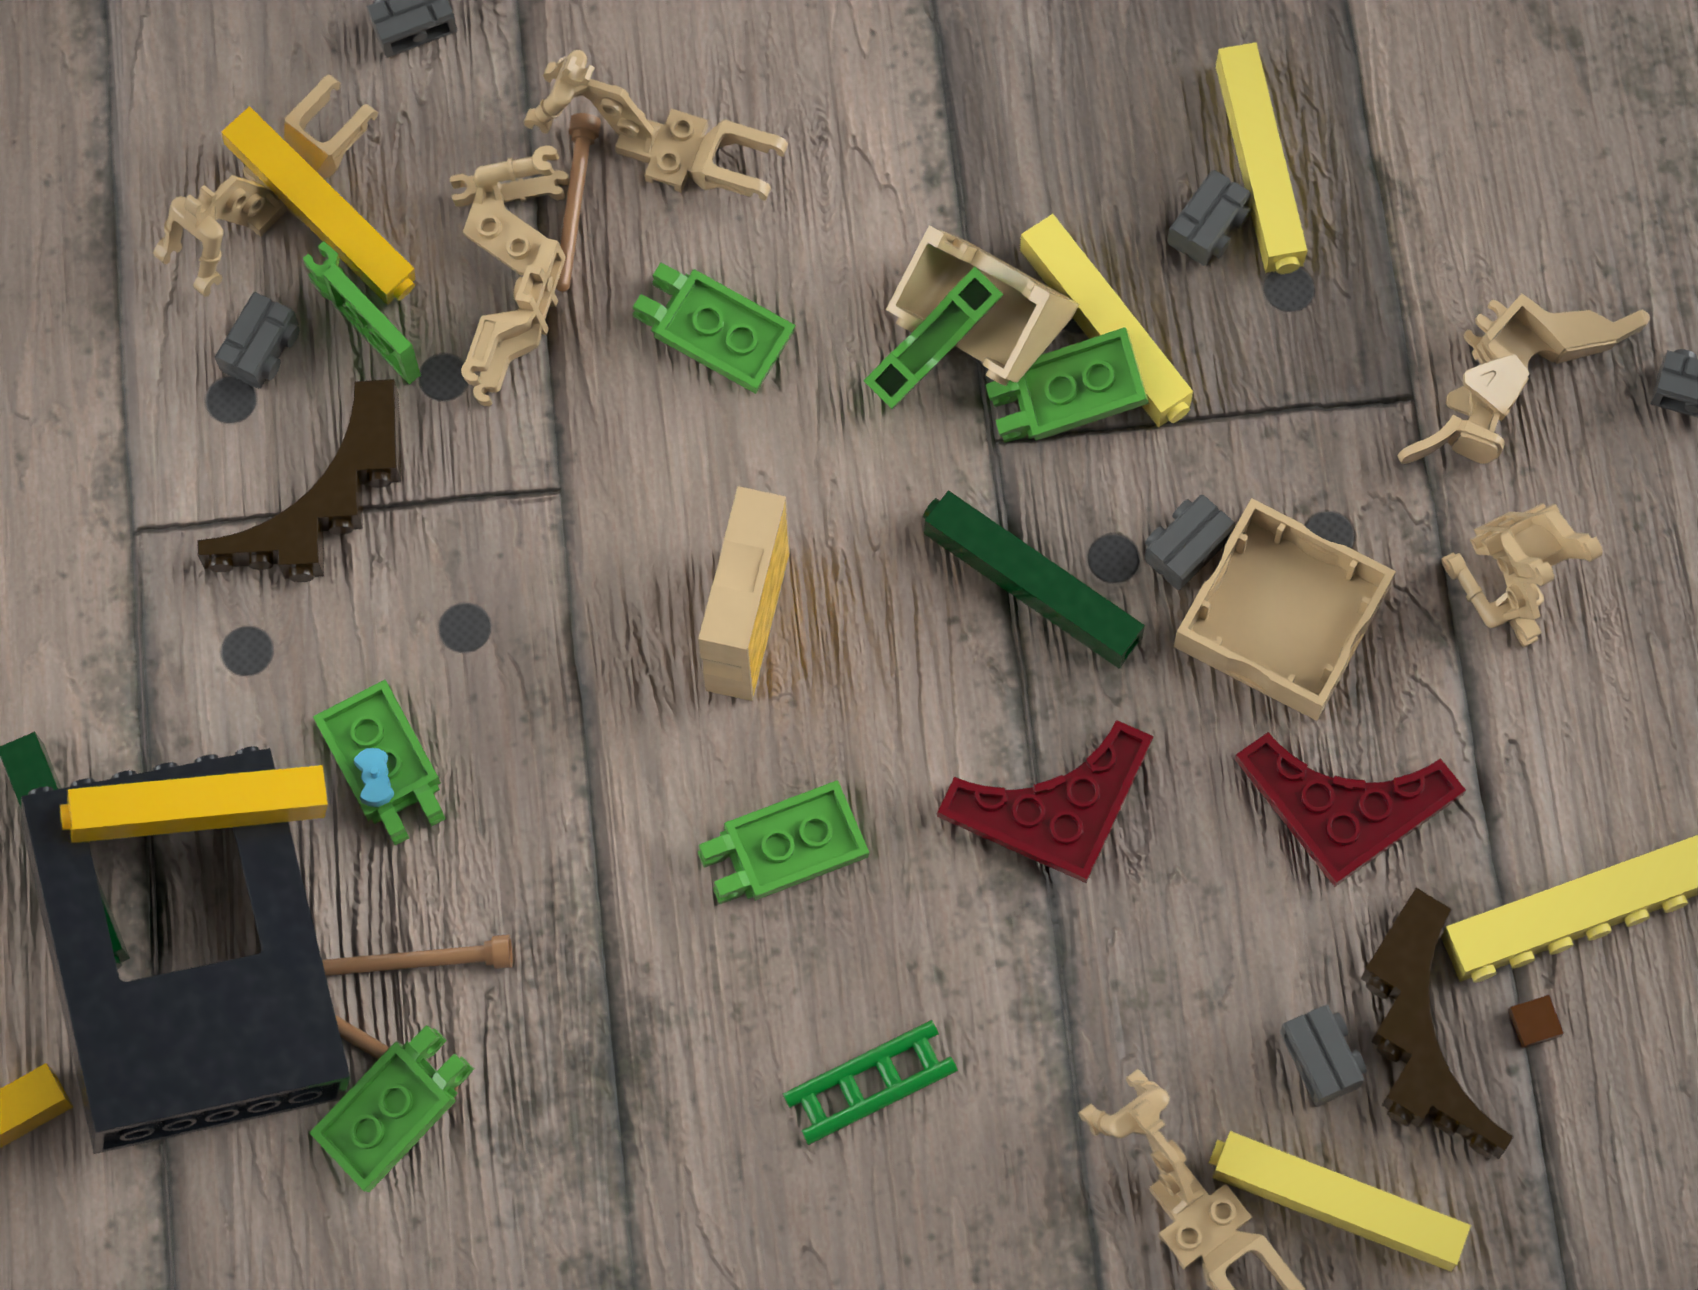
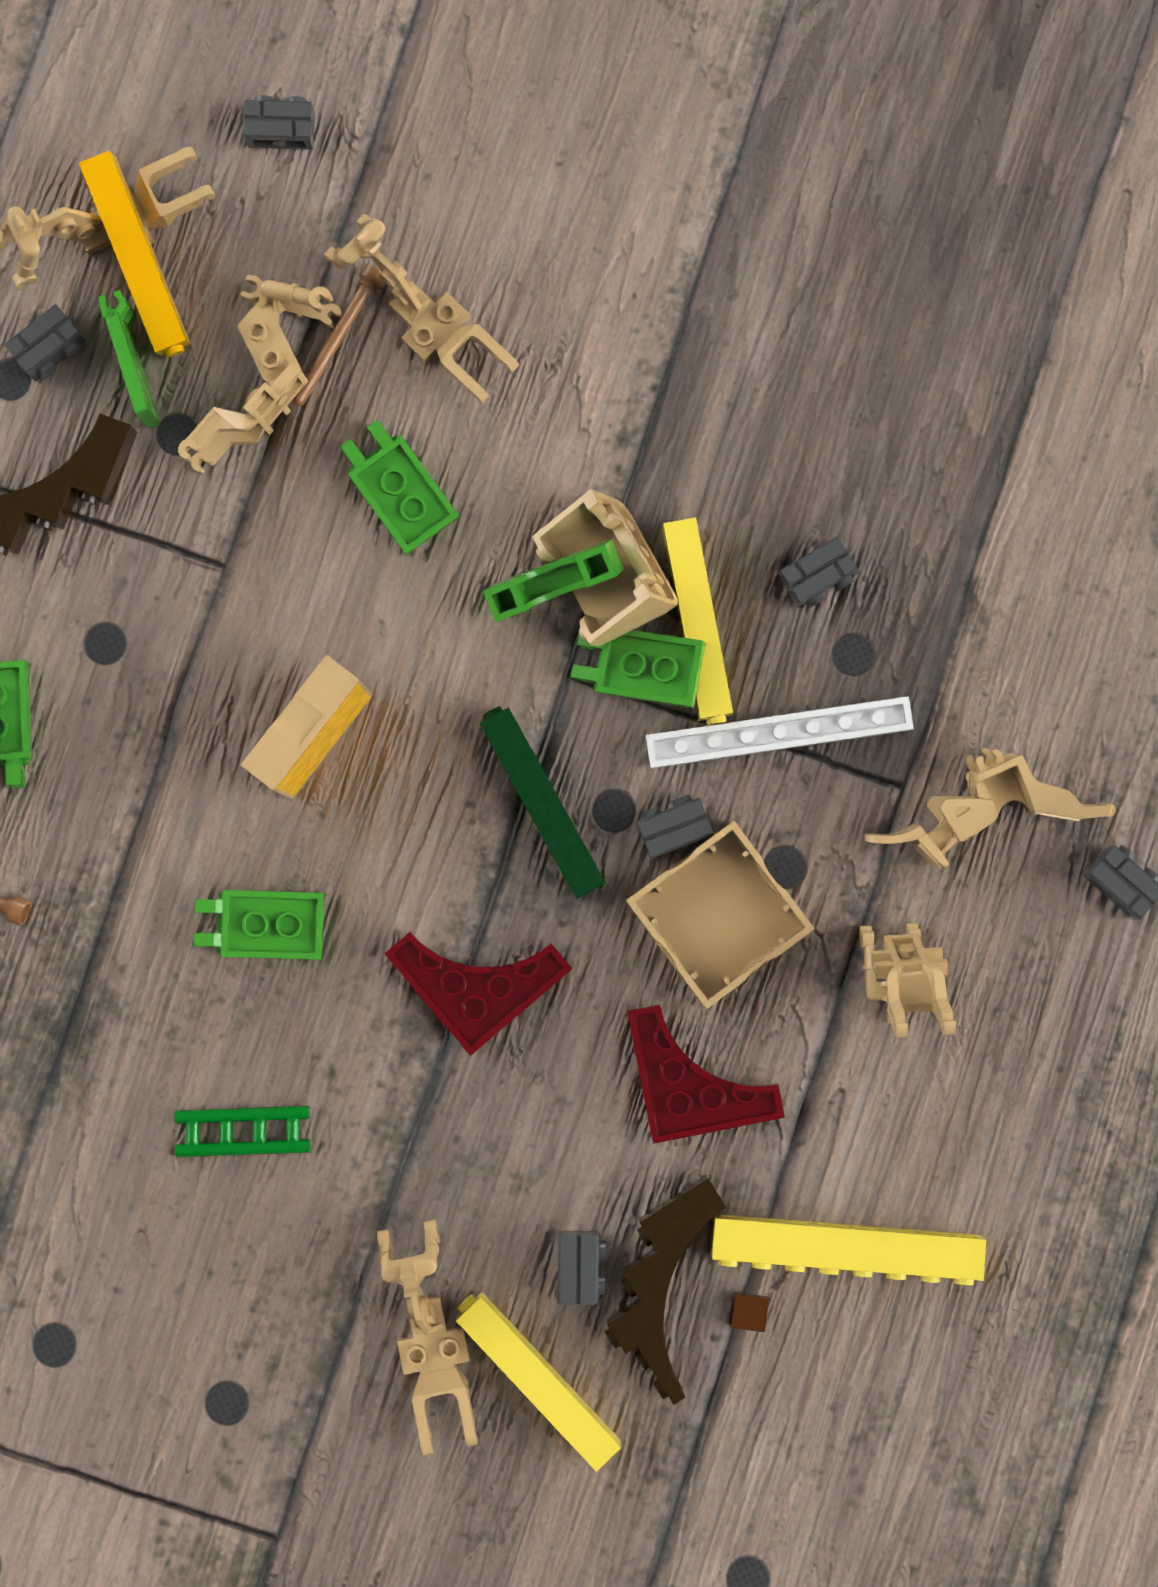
camera: 25 degrees right, 15 degrees up
(1250, 397) = (779, 732): none -> white plate
(1261, 158) = (882, 541): light yellow brick -> none

